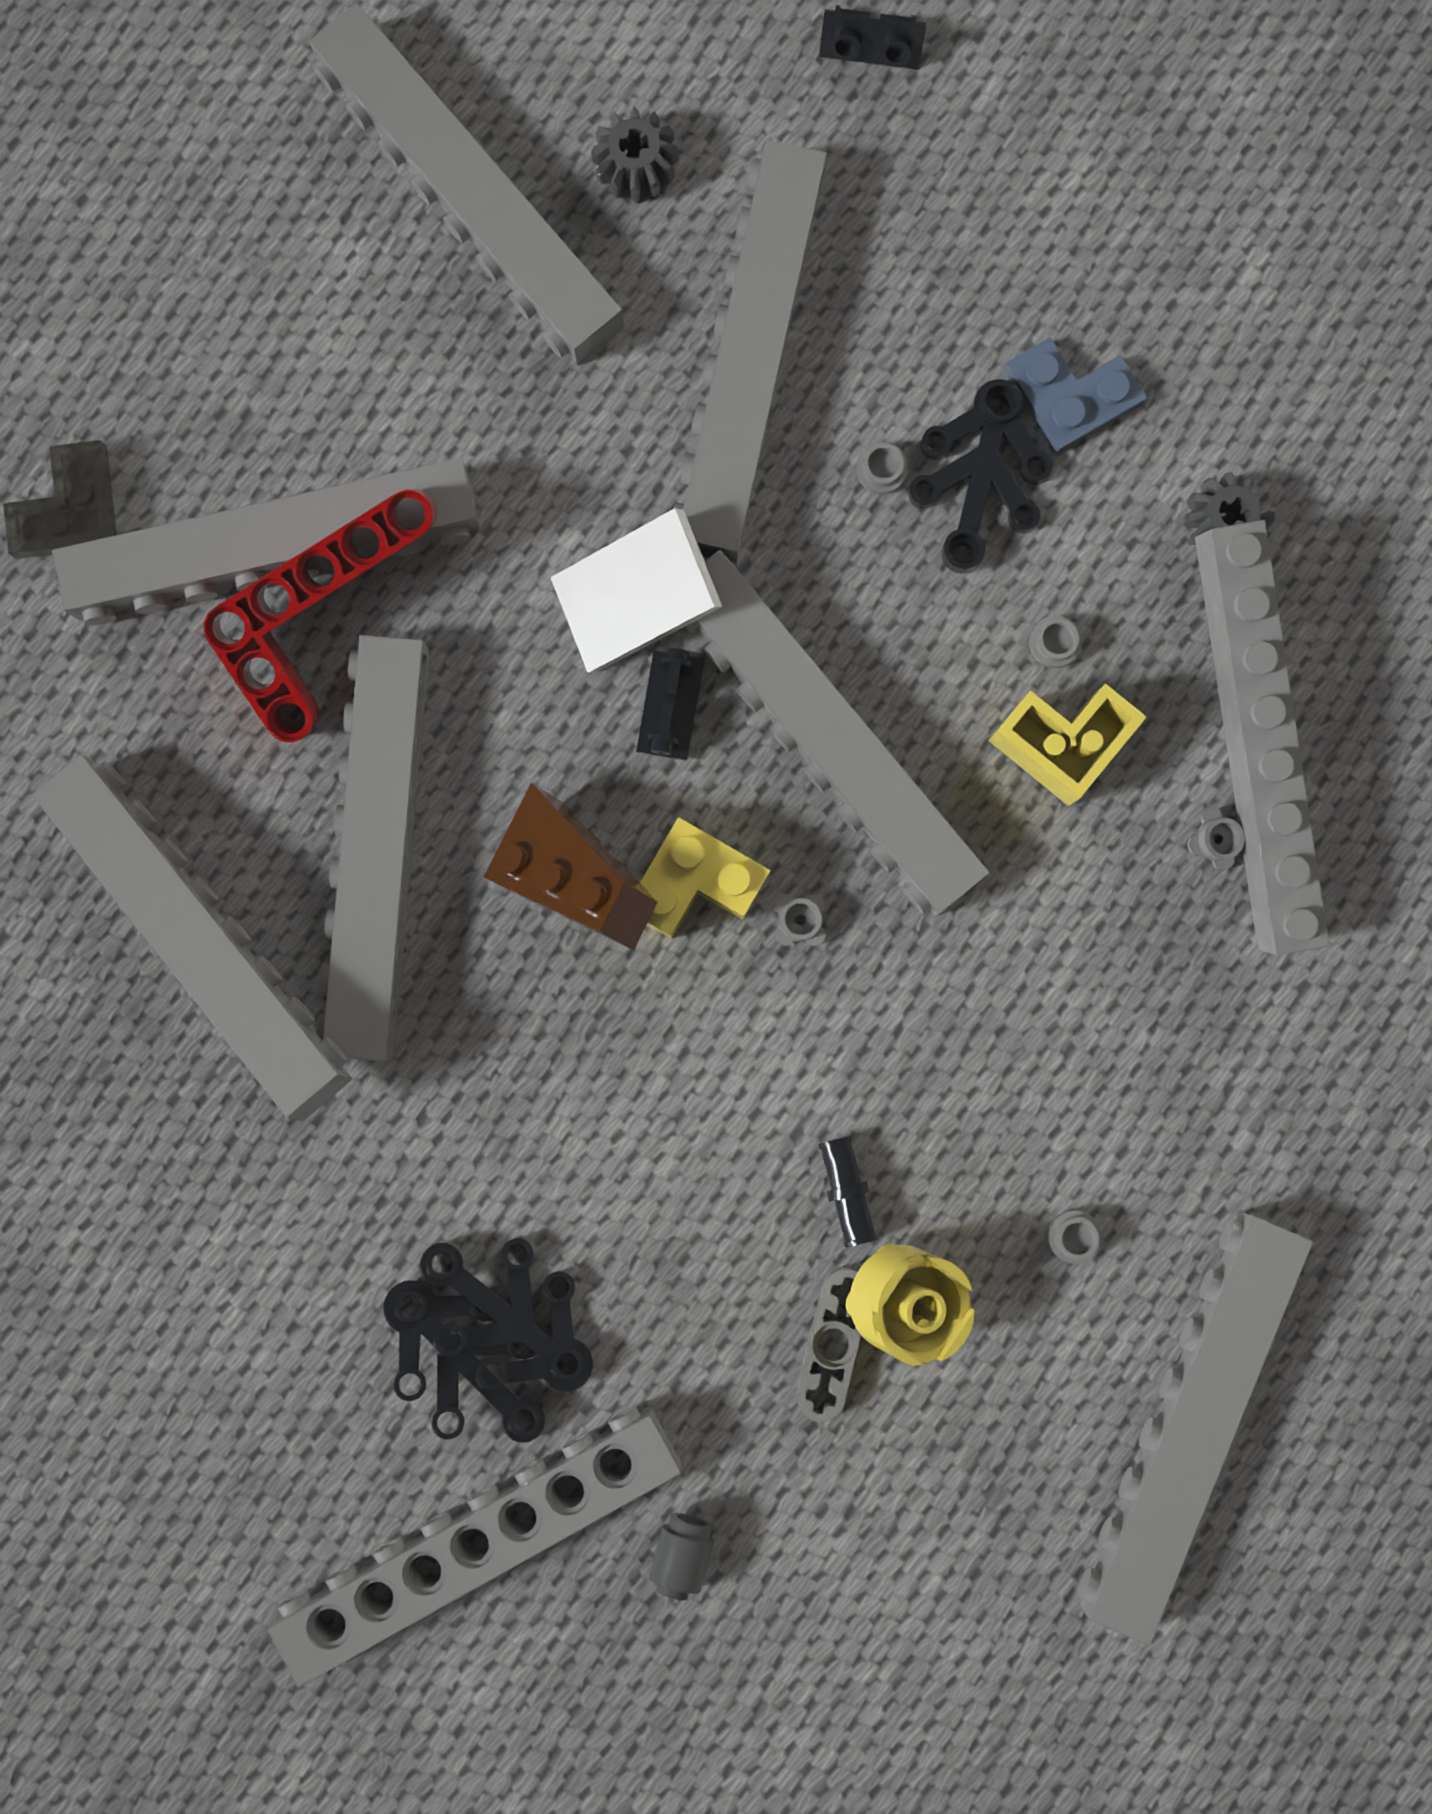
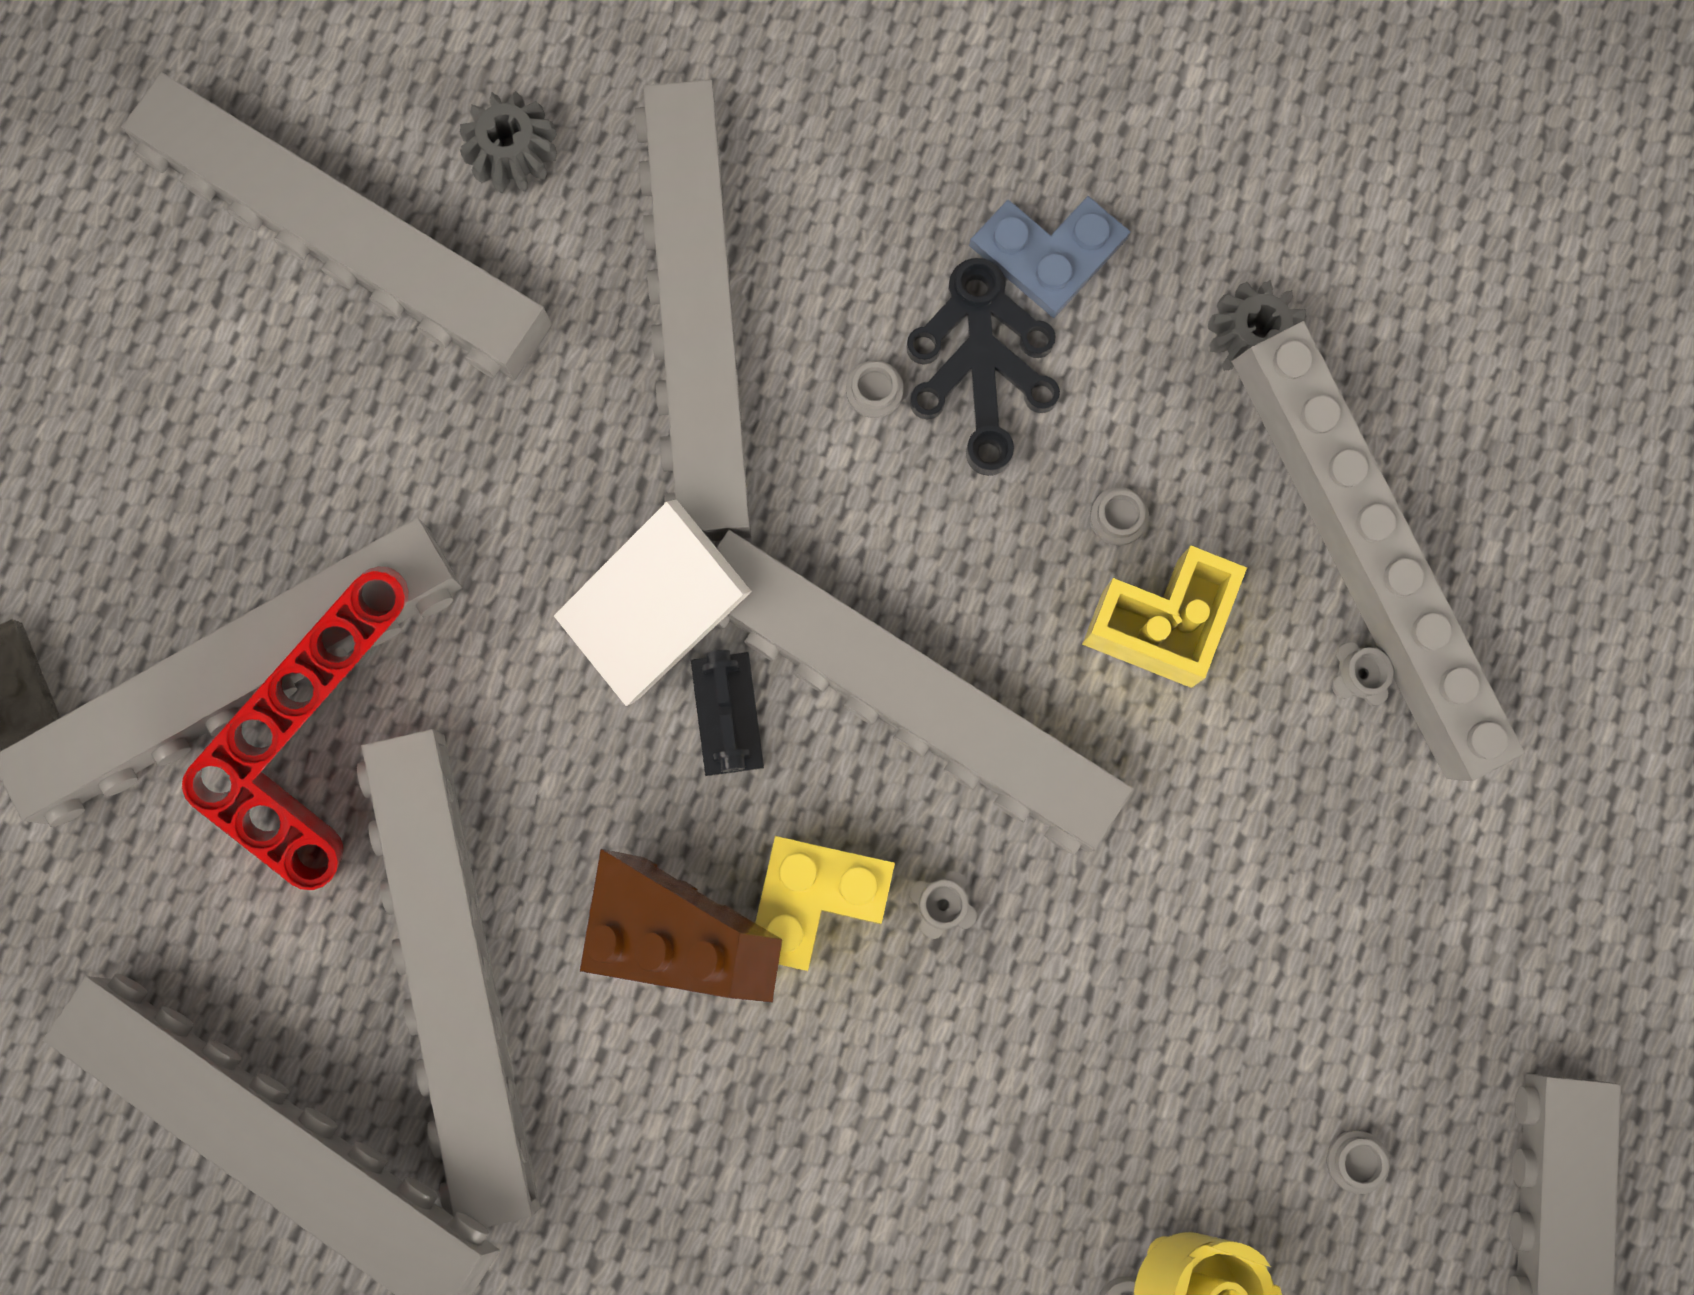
camera: 20 degrees left, 5 degrees down
(848, 1191) = (1093, 1193): black pin -> none

